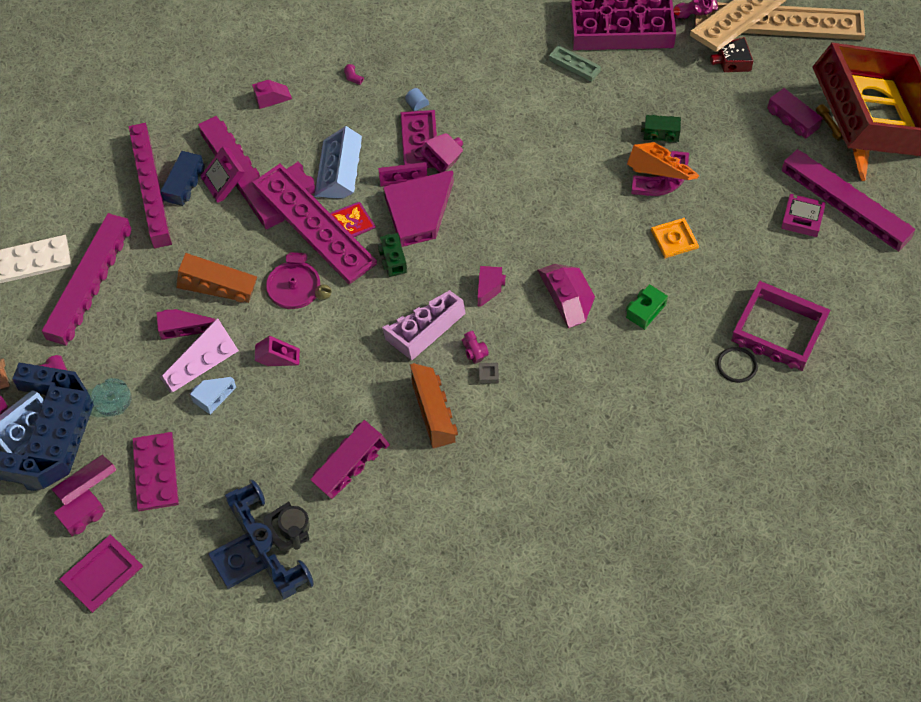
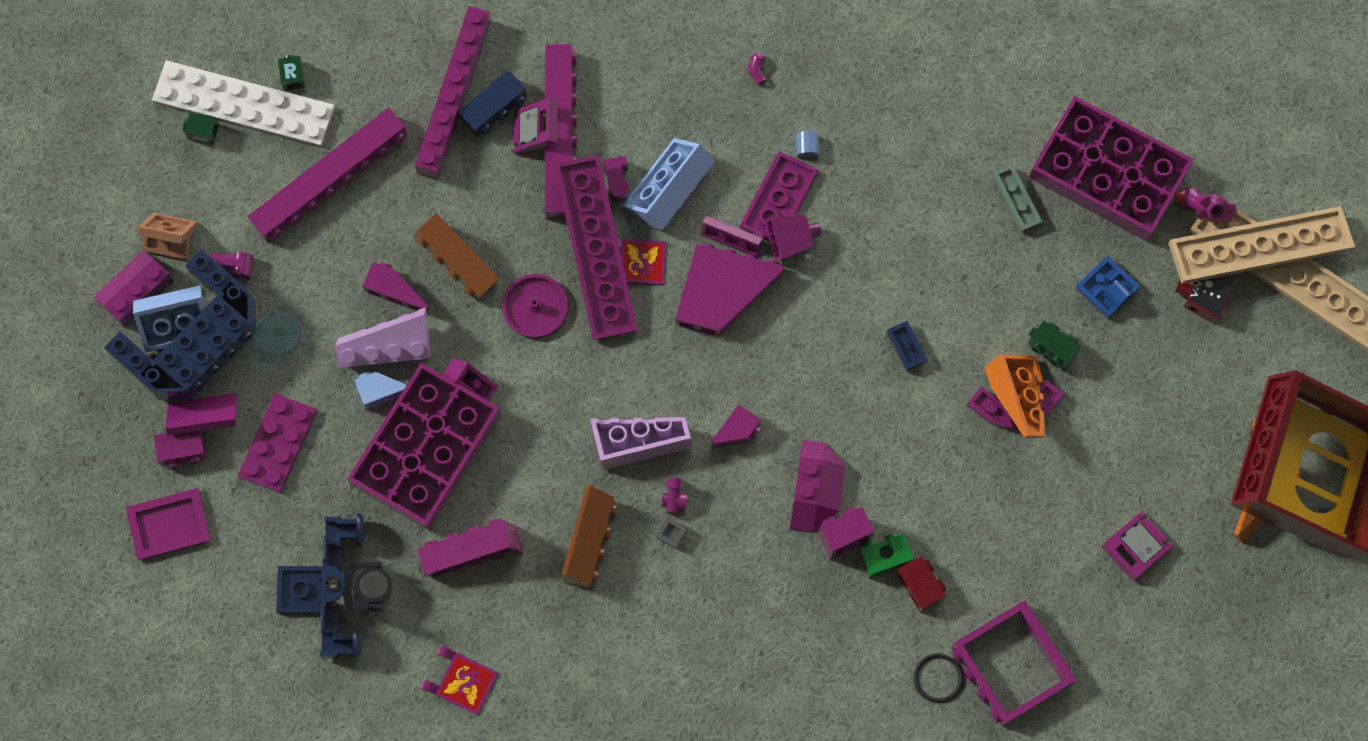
camera: 30 degrees right, 15 degrees up
(21, 229) = (291, 72): none -> dark green brick
(270, 93) = (651, 44): magenta slope -> none
(271, 411) = (424, 446): none -> magenta brick
(296, 257) = (556, 276): magenta tile -> none
(322, 295) = (555, 329): olive hinge -> none
(393, 255) = (657, 334): dark green brick -> none
(403, 556) = (464, 682): none -> flag
(566, 179) = (906, 346): none -> dark blue plate
(610, 303) = (845, 532): none -> magenta brick
(669, 82) = (1107, 287): none -> blue plate
(674, 238) = (976, 488): light orange tile -> none
(682, 311) = (921, 583): none -> dark red brick
(794, 113) = (1220, 412): magenta brick -> none
(848, 200) = (1199, 557): magenta brick -> none

